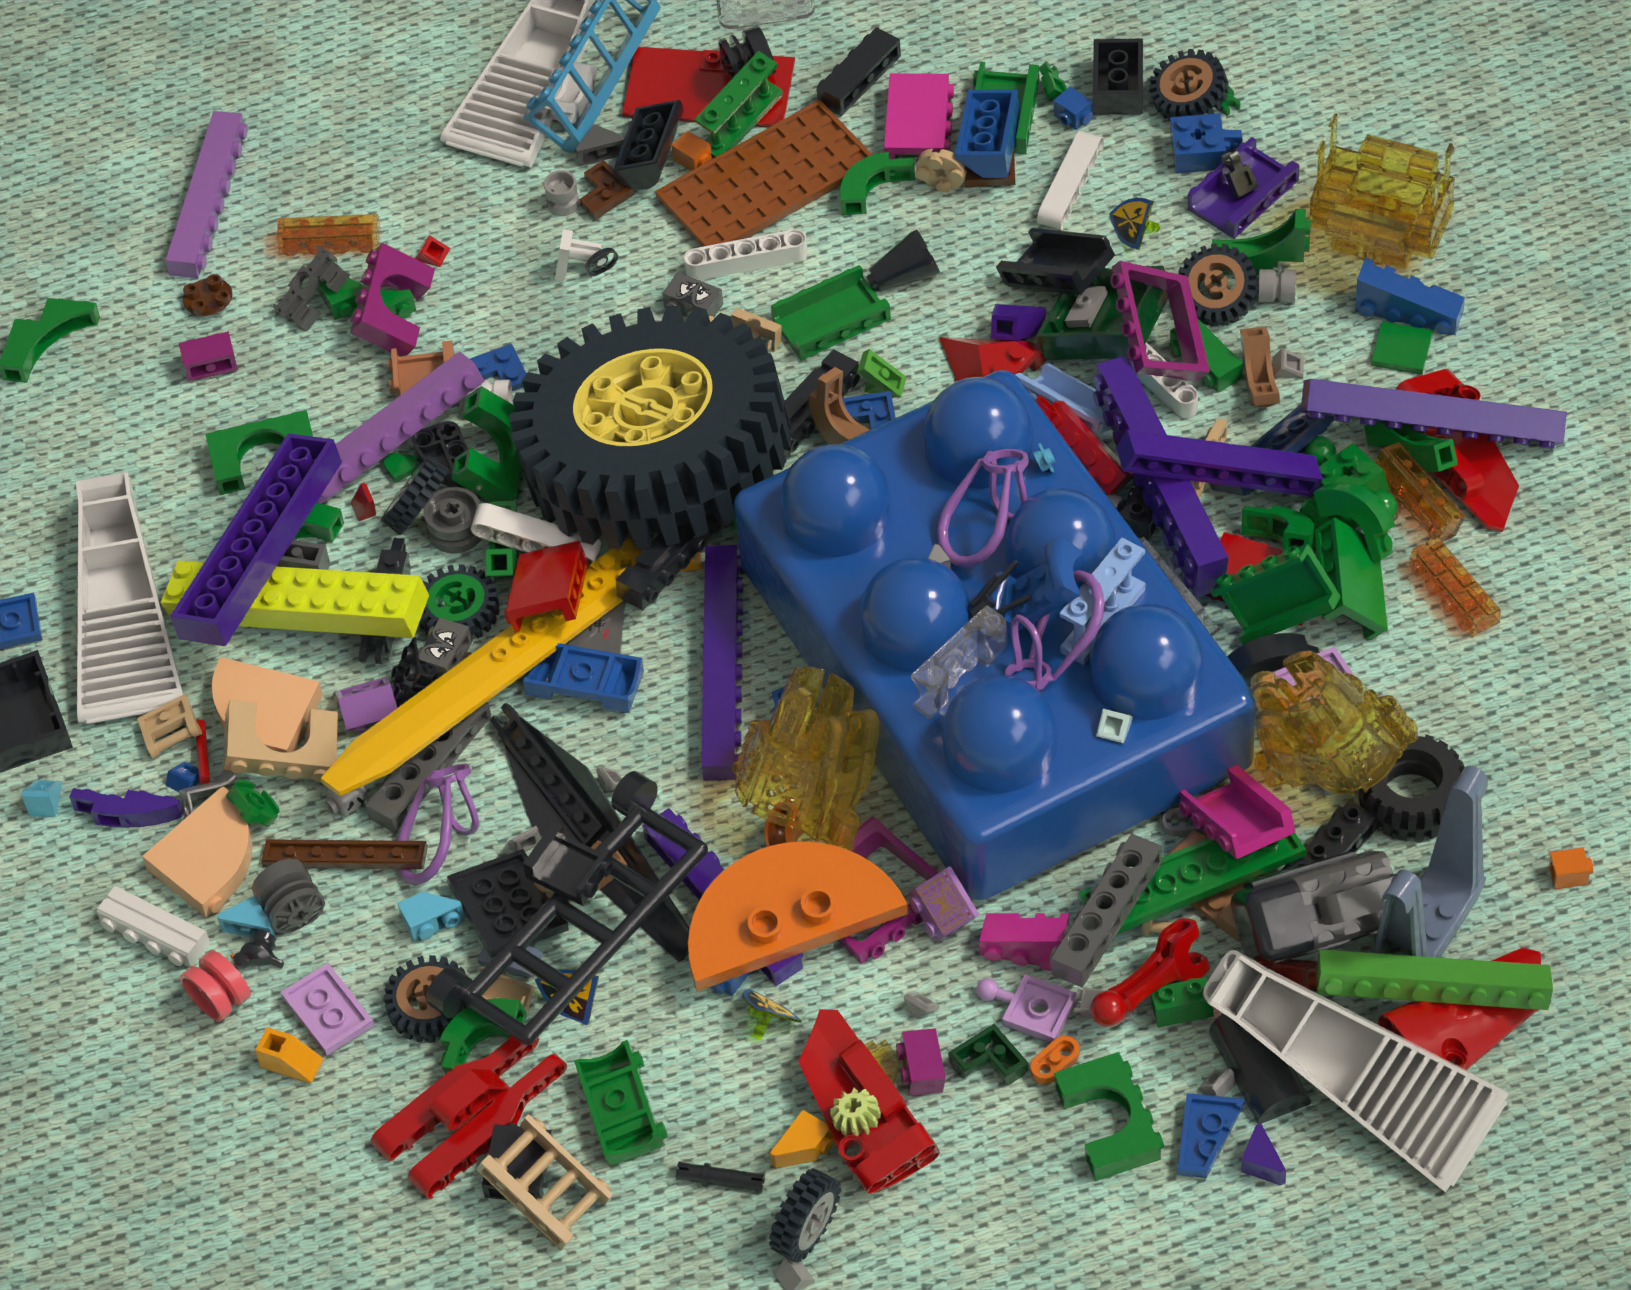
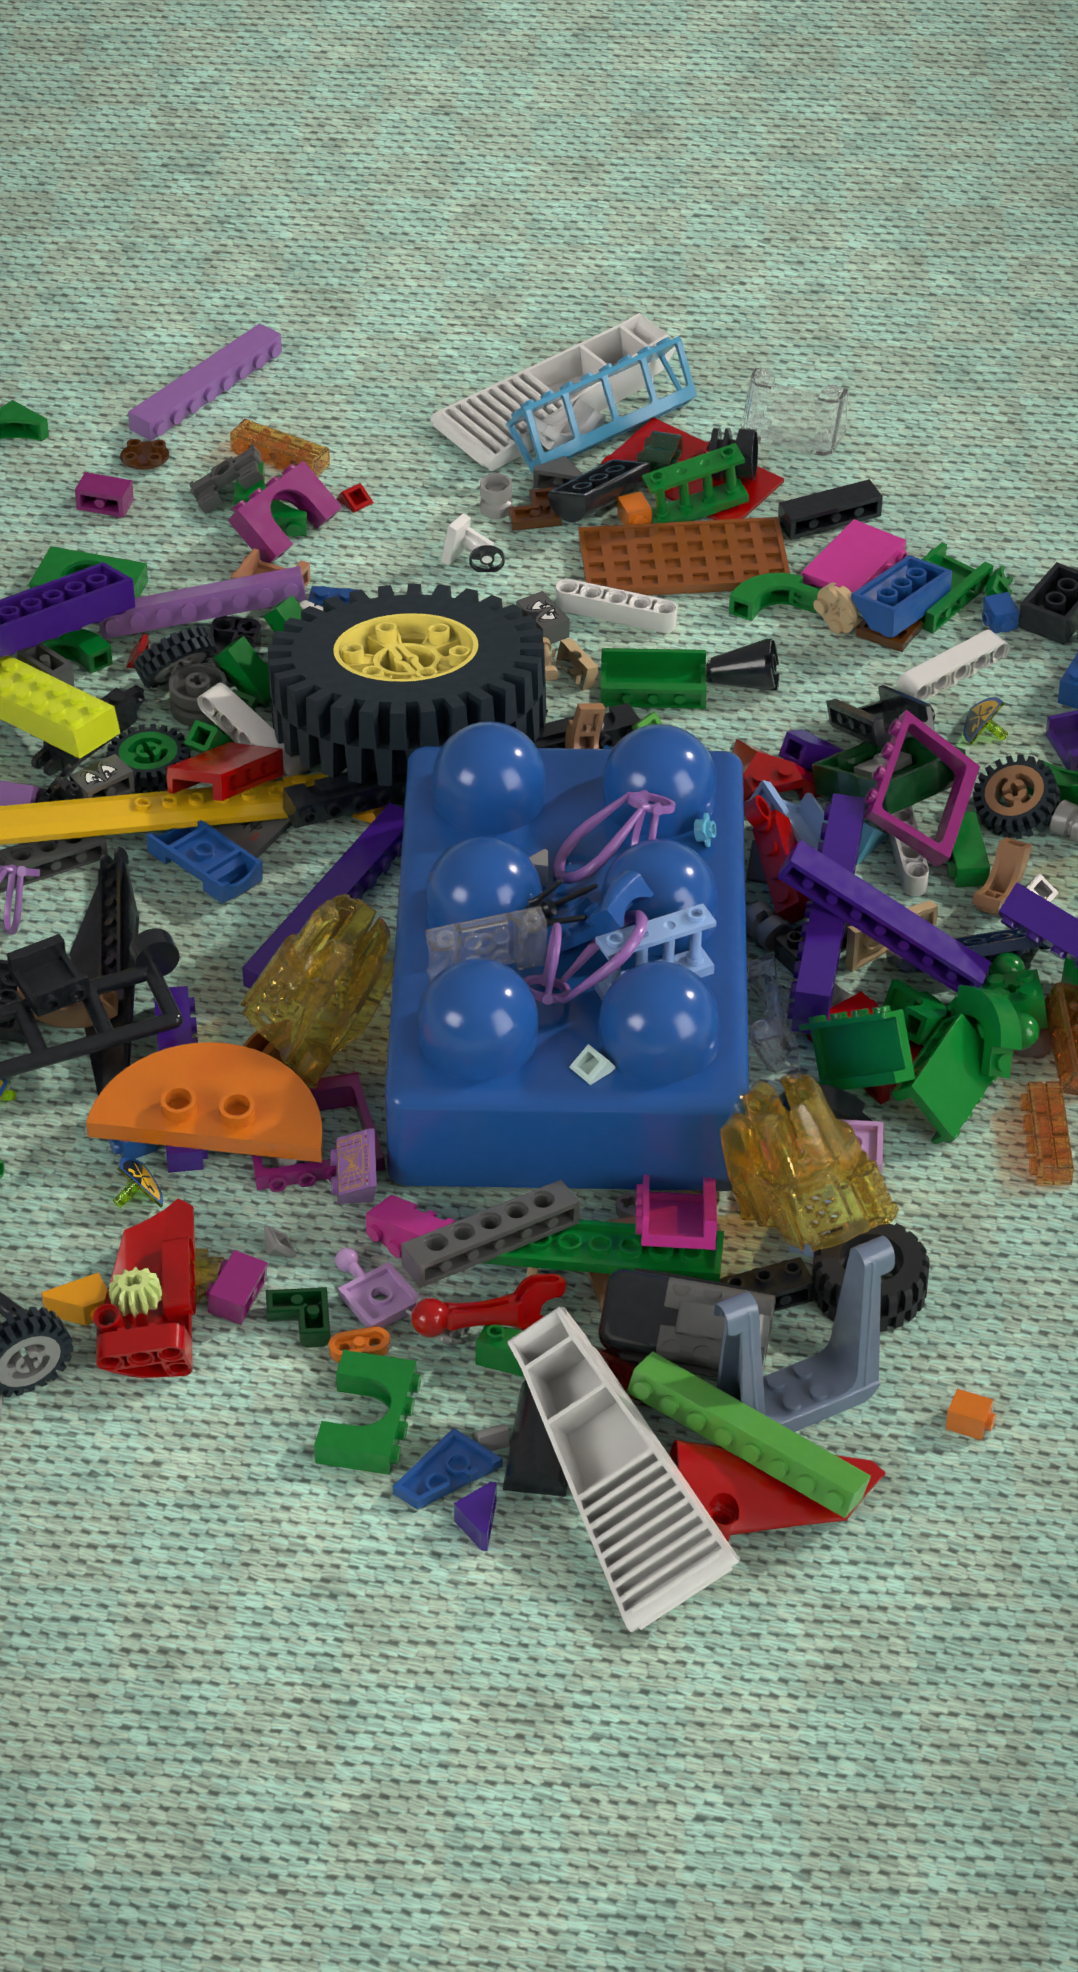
camera: 25 degrees right, 10 degrees down
(674, 81) = (661, 450): none -> clear green brick

